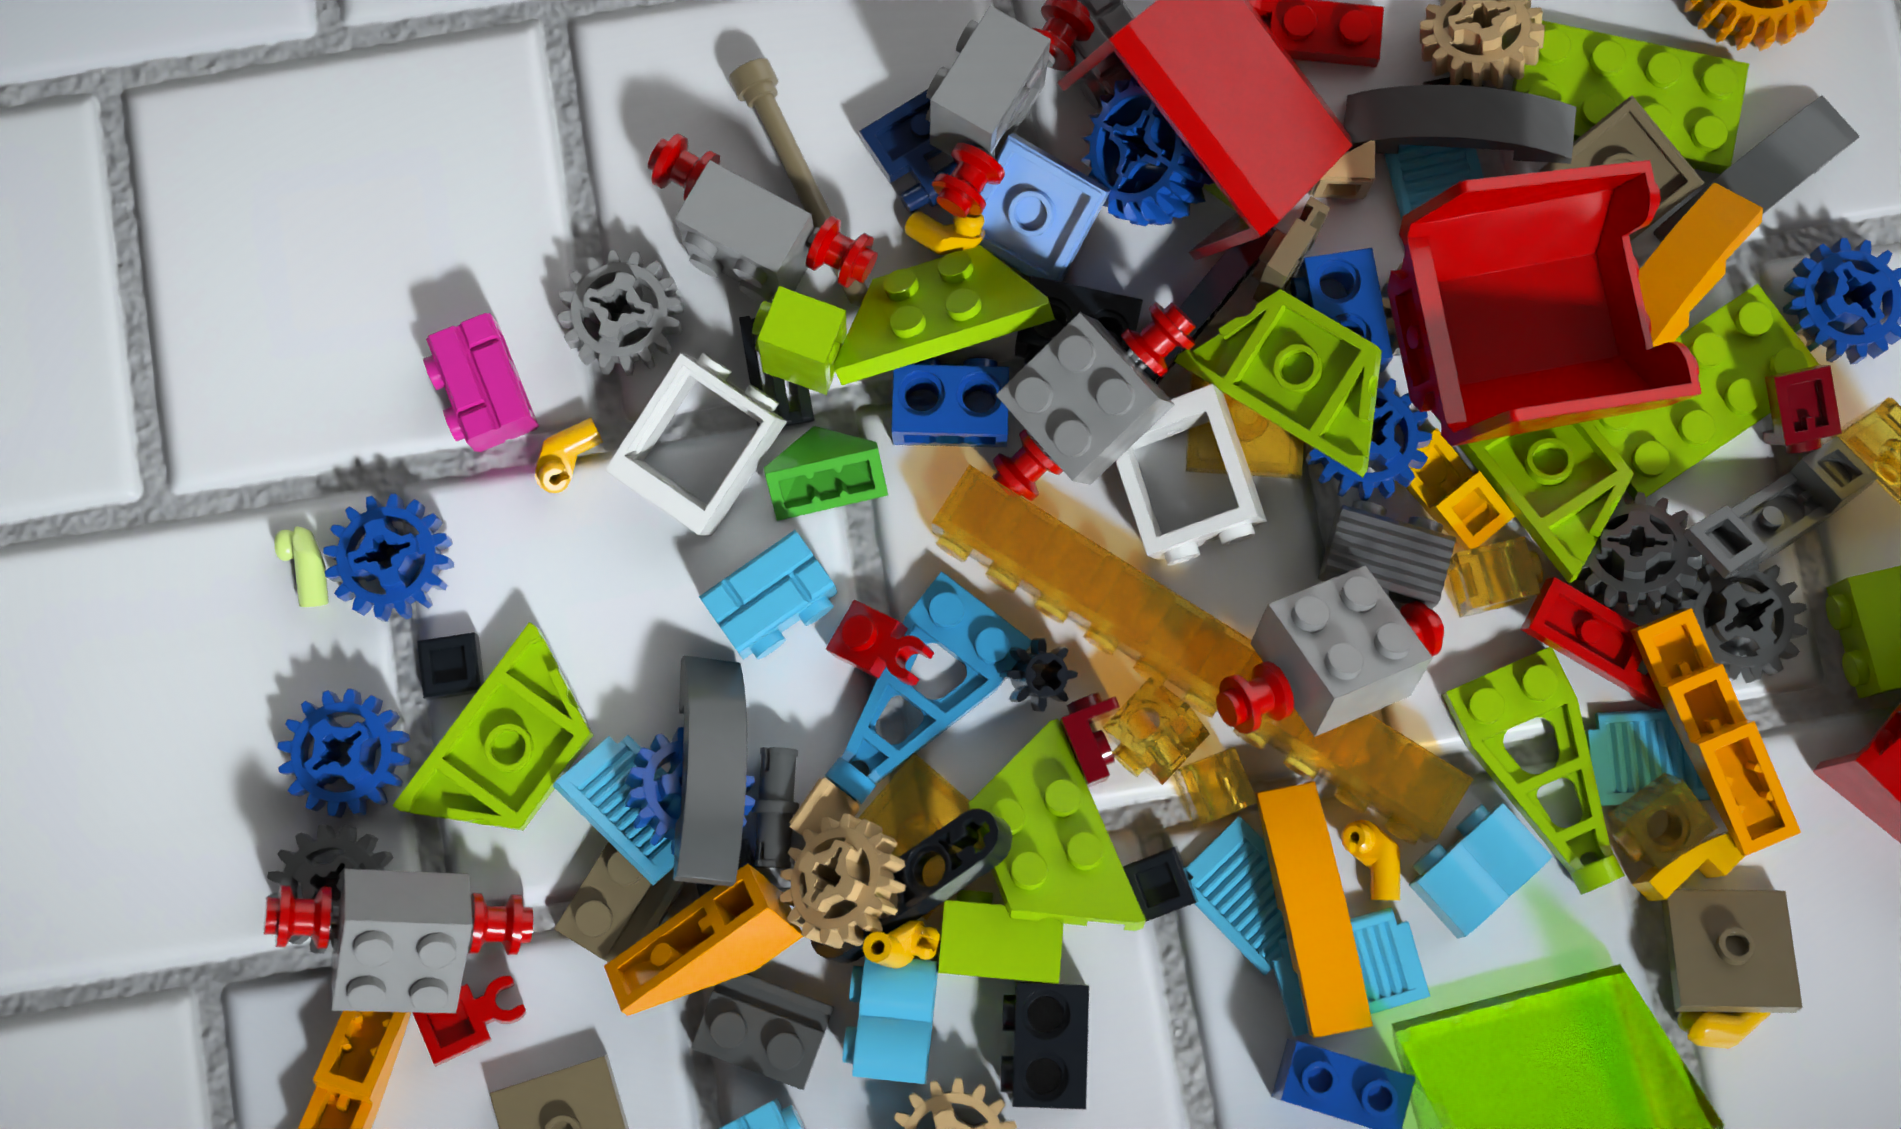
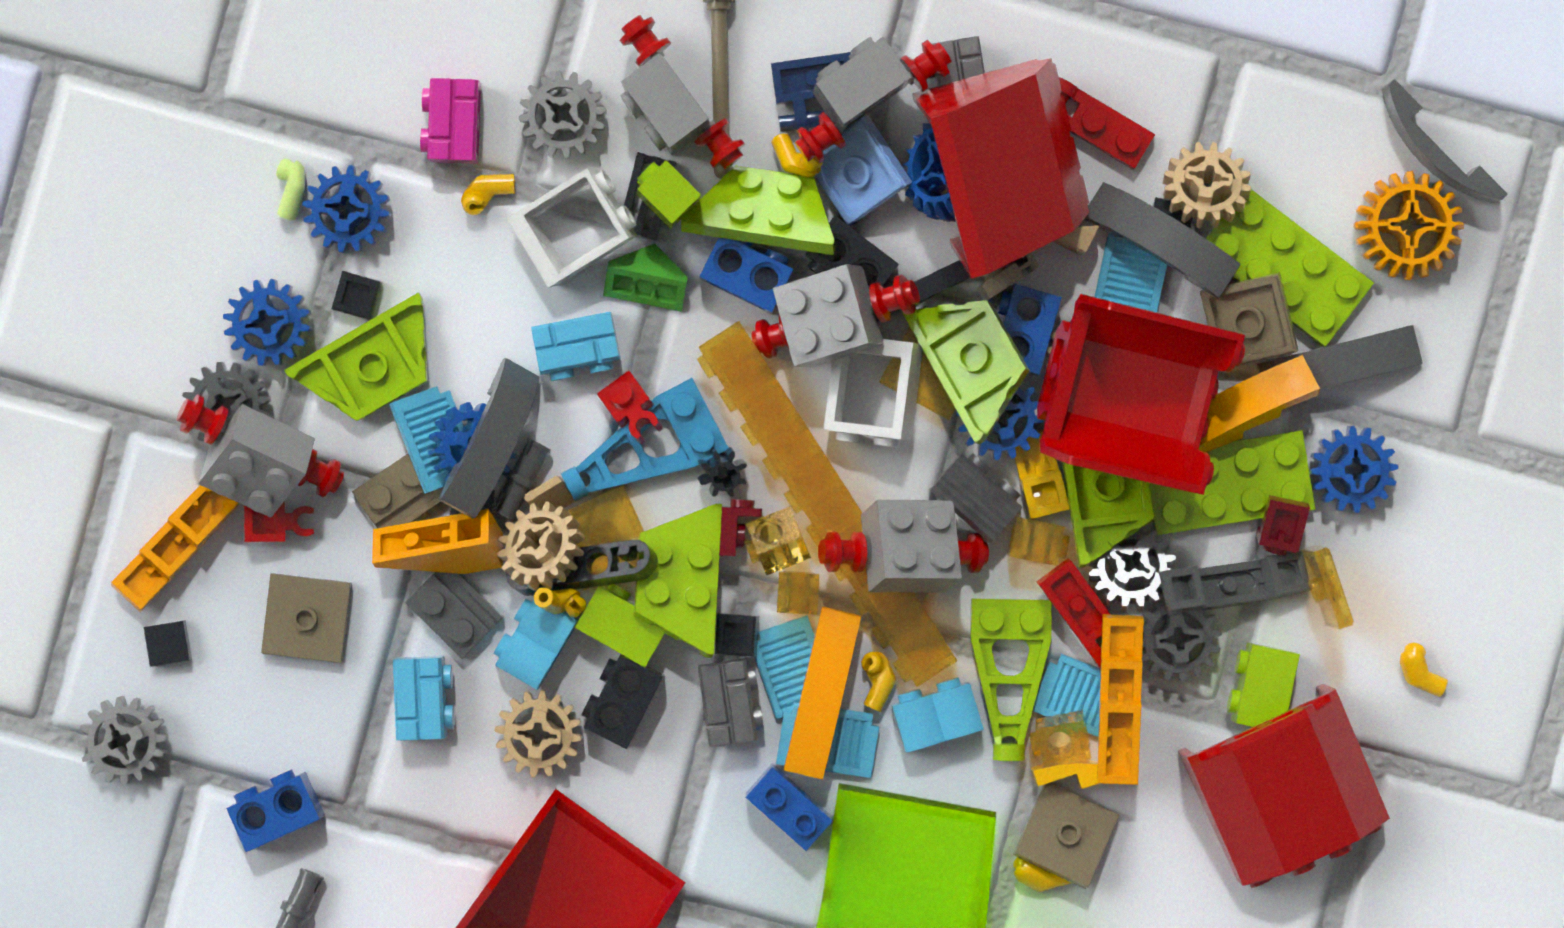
camera: 20 degrees right, 10 degrees up
(1193, 980) = (728, 702): none -> flat silver brick

